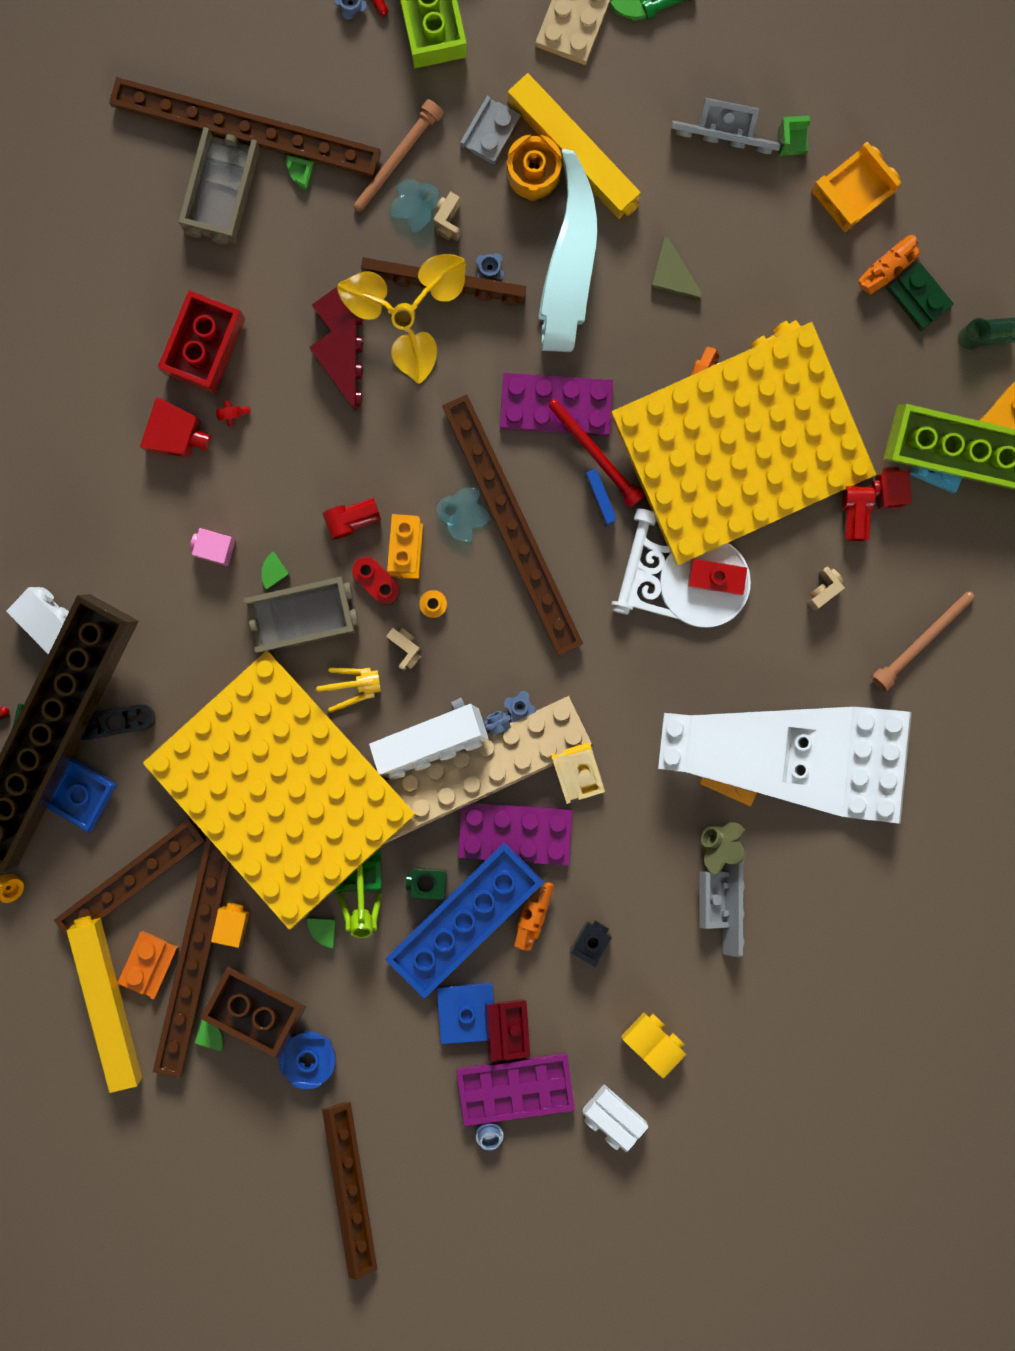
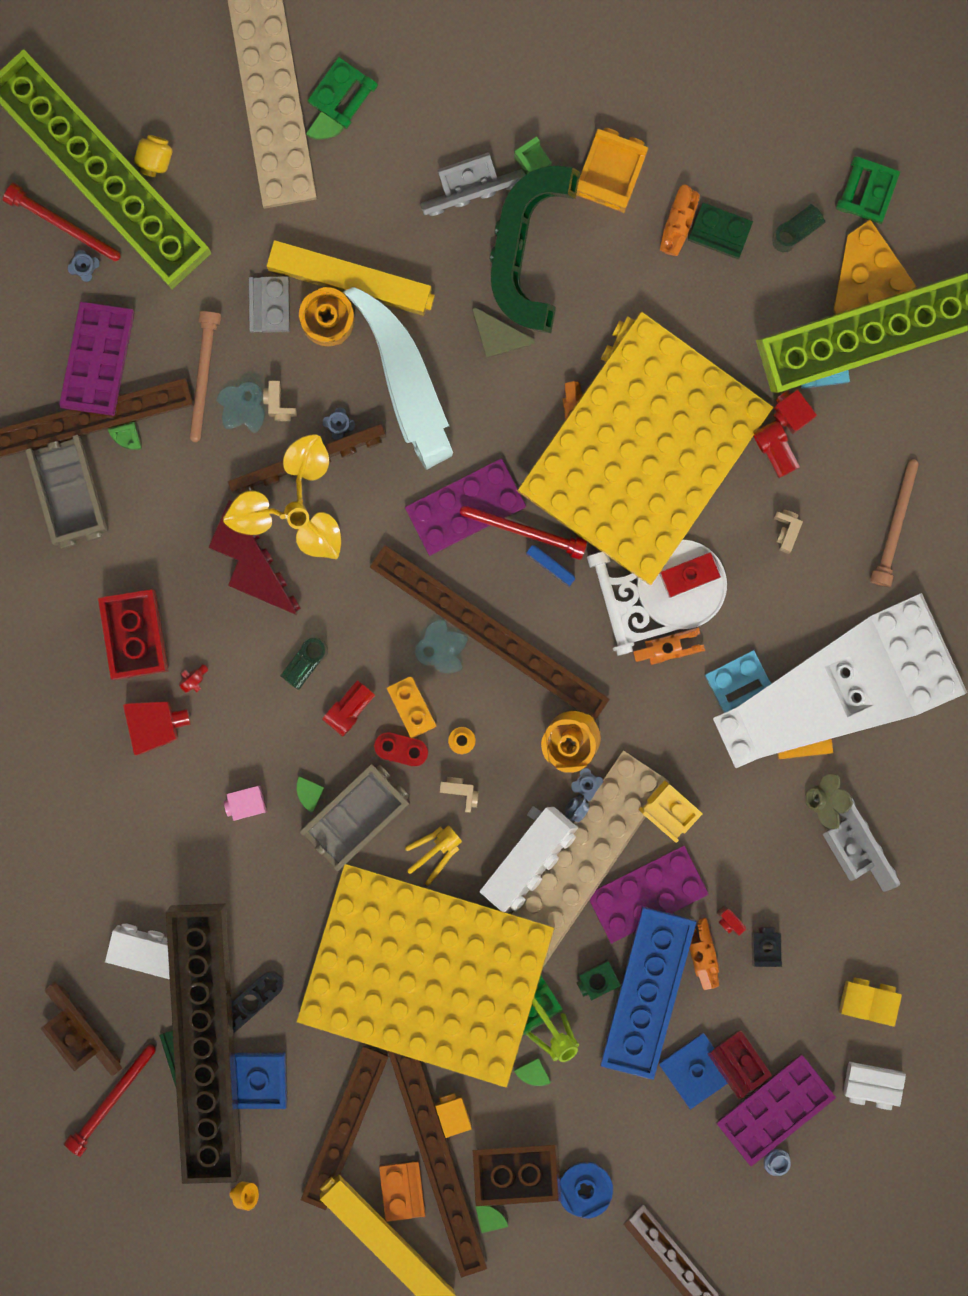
camera: 25 degrees left, 0 degrees up
(313, 86) = (97, 358): none -> magenta plate
(334, 456) = (303, 665): none -> clear green piece
(514, 666) = (562, 753): none -> light orange brick
(573, 900) = (730, 921): none -> red plate
(646, 629) = (654, 647): none -> orange hinge
(704, 689) = (734, 676): none -> medium azure plate
(768, 163) = (511, 242): none -> dark green arch

